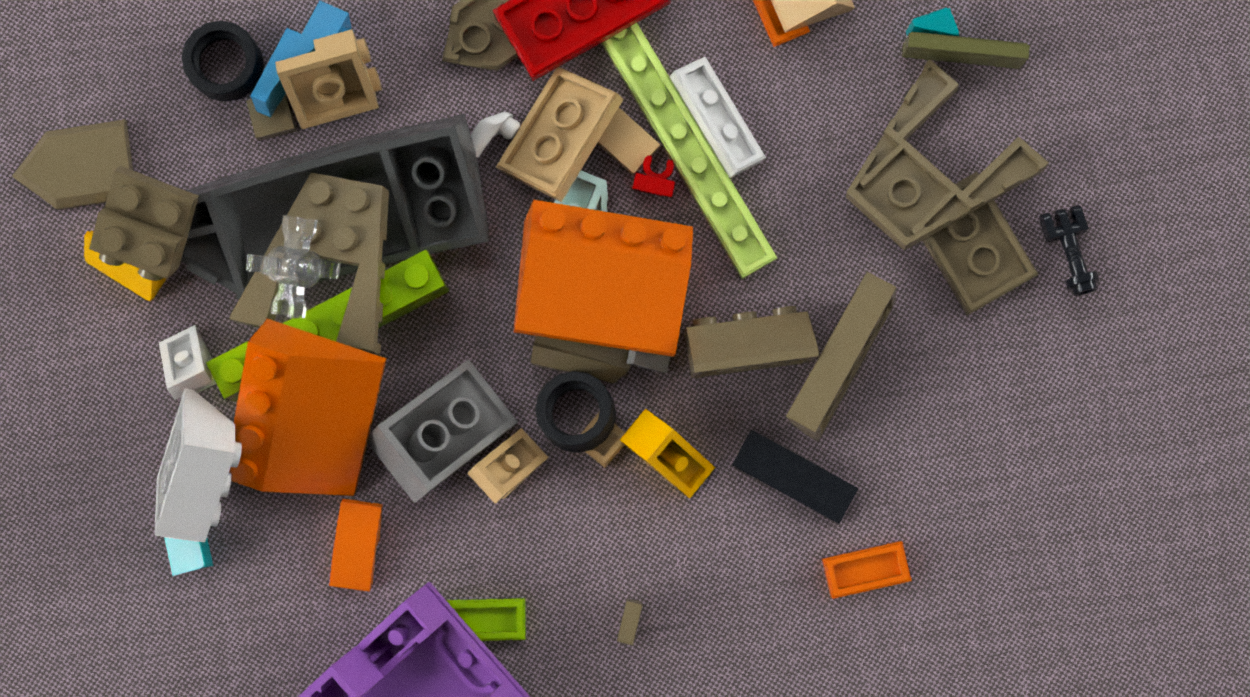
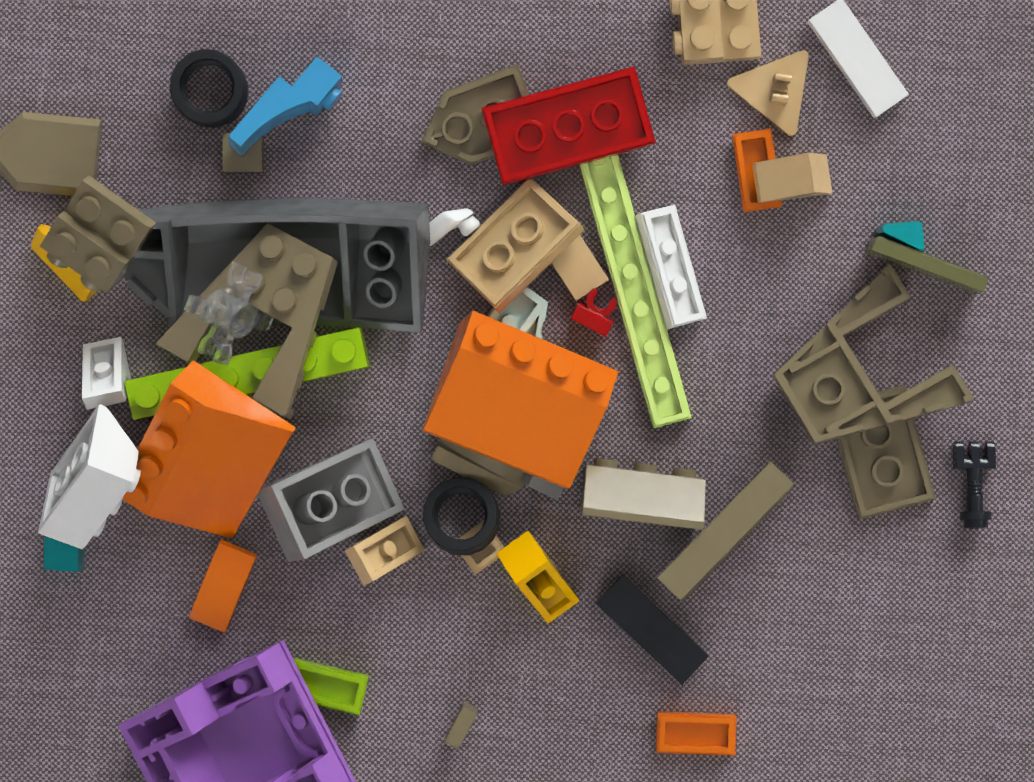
camera: 20 degrees right, 5 degrees up
(330, 80) = (309, 139): tan plate -> none

